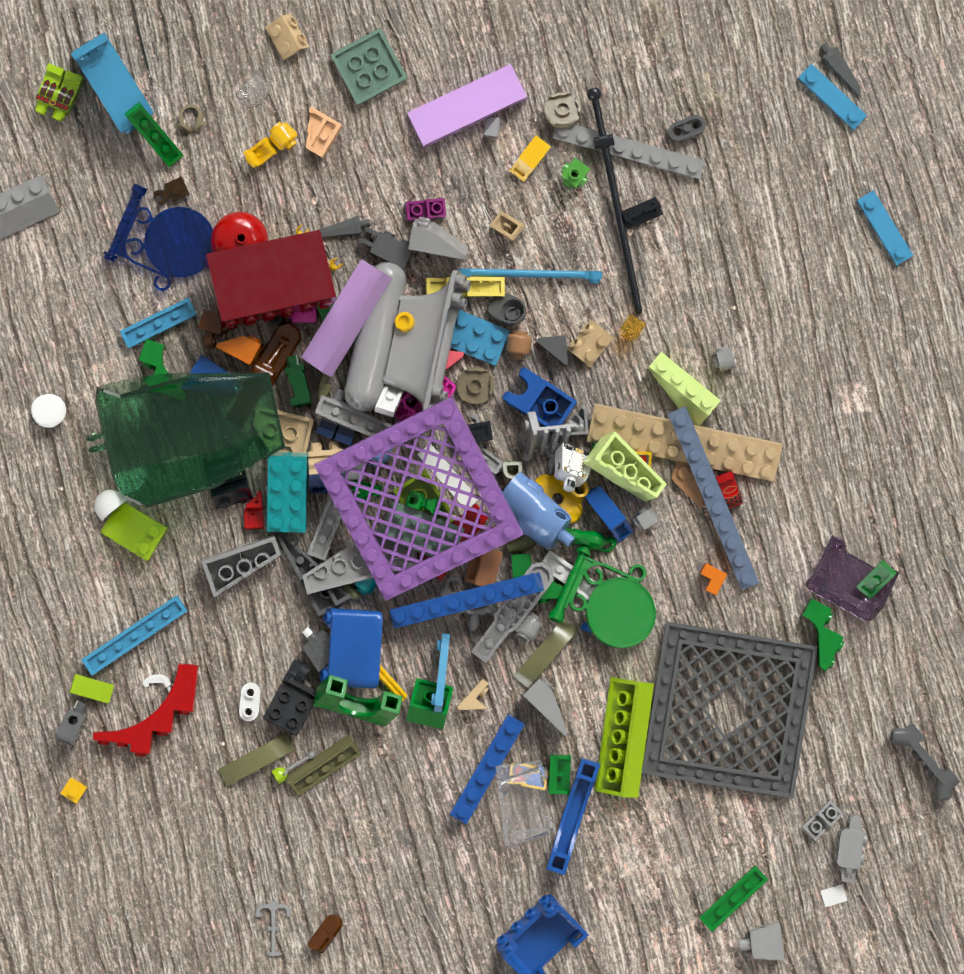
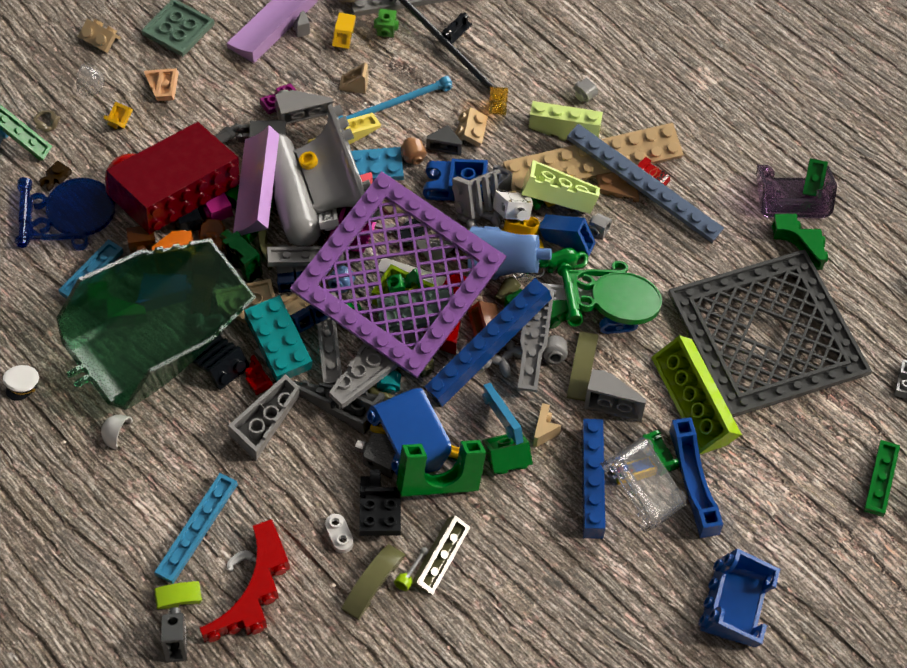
camera: 35 degrees left, 30 degrees down
(135, 531) = (153, 439): lime slope -> none
(283, 136) = (131, 96): yellow head -> none
(507, 309) = (391, 132): dark grey cap -> none
(715, 576) = (684, 238): orange piece -> none

